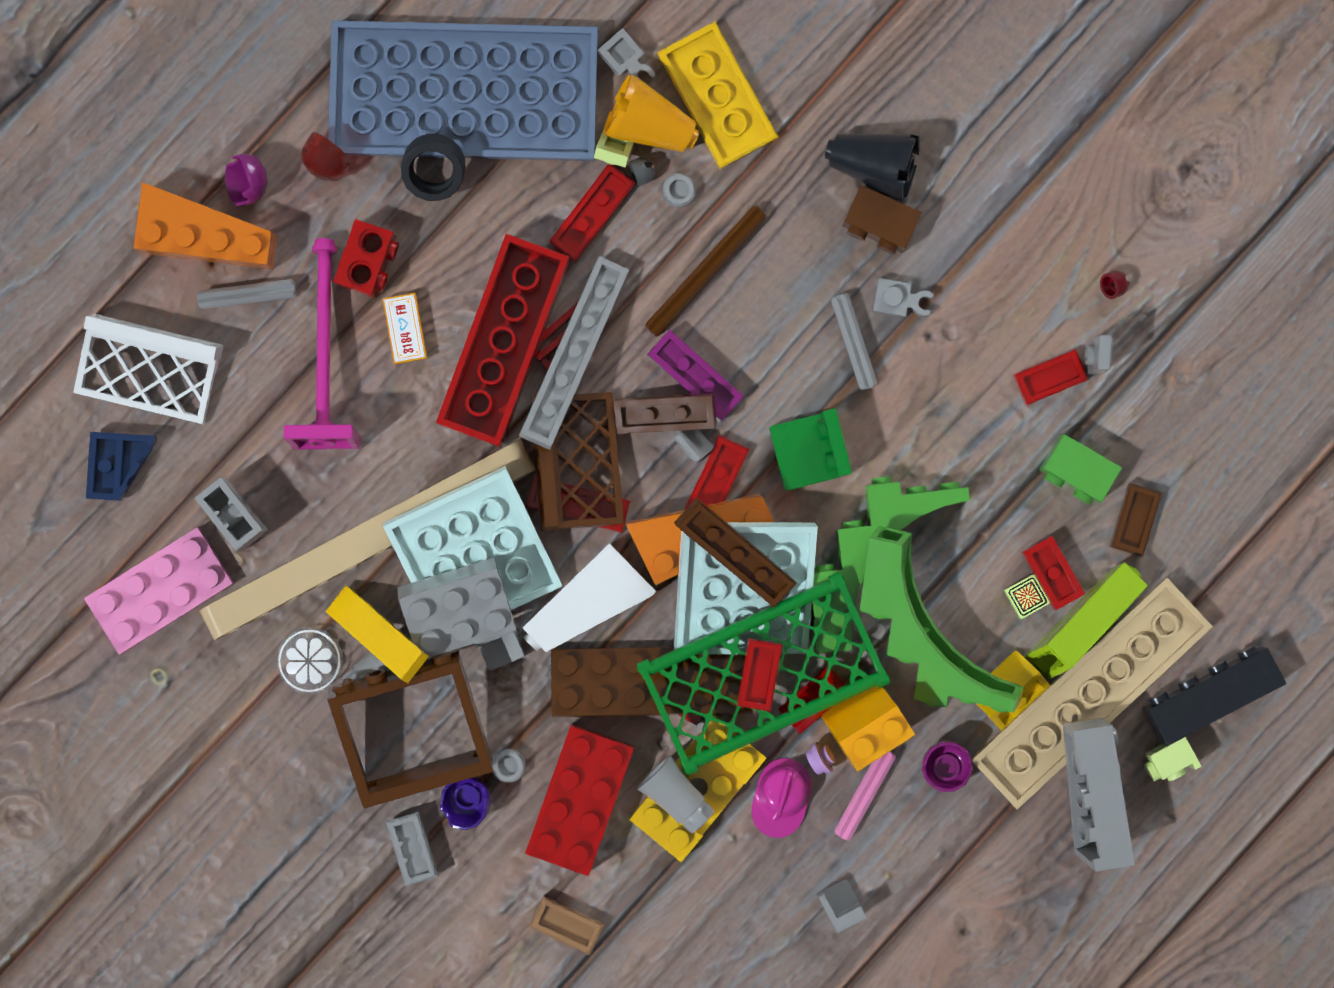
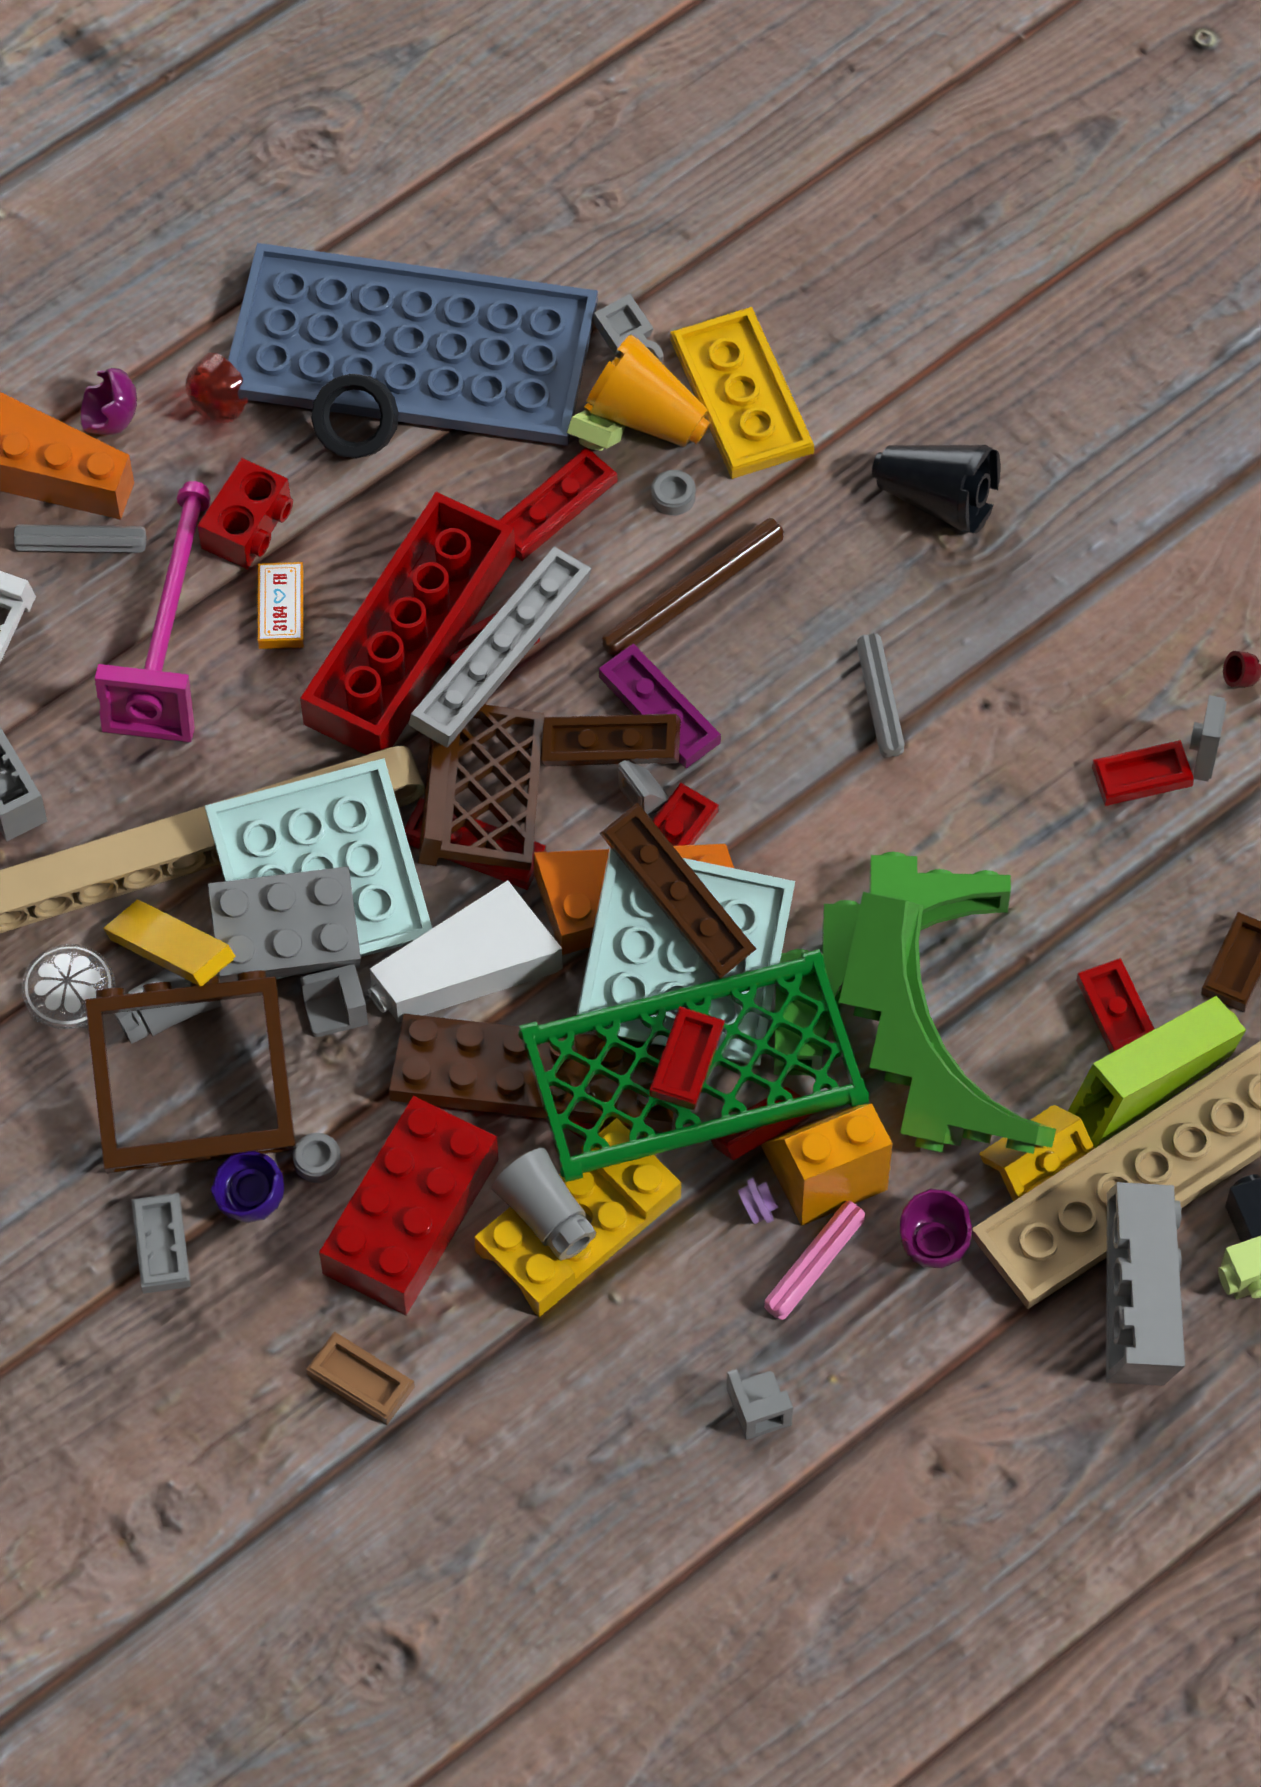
camera: 10 degrees right, 25 degrees down
(642, 170) = (628, 460): dark grey hinge -> none
(781, 798) = (694, 1254): dark pink piece -> none
(810, 450) = (803, 813): green bracket -> none
(881, 220) = (936, 553): reddish brown brick -> none
(895, 298) = (945, 651): light grey plate -> none
(1026, 596) = (1077, 1037): tile -> none
(1079, 470) = (1168, 883): bright green brick -> none

